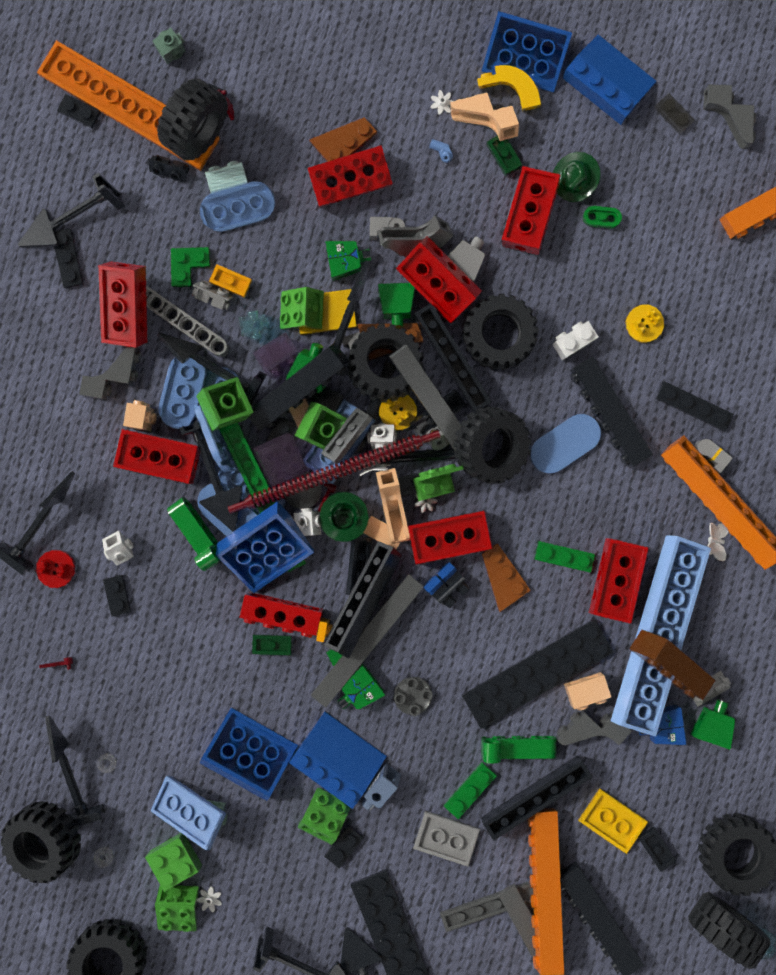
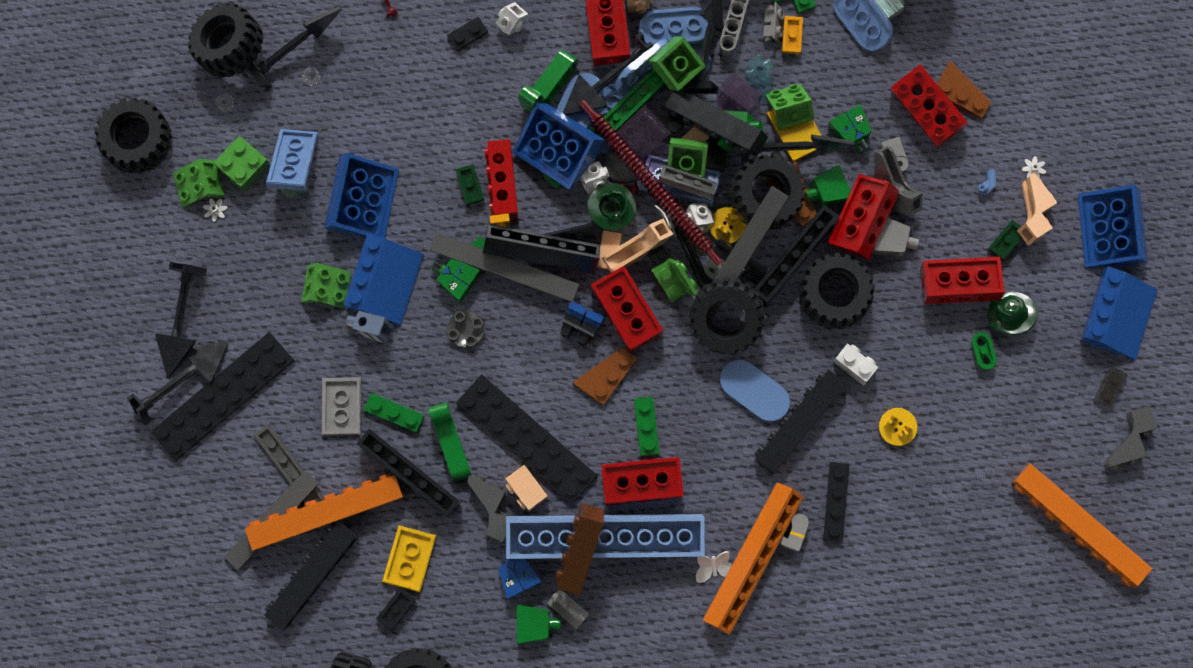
camera: 75 degrees right, 10 degrees down
(344, 846) = (303, 314): black plate -> none
(426, 504) = (649, 280): white plant -> none
(517, 80) = (1077, 235): yellow arch -> none

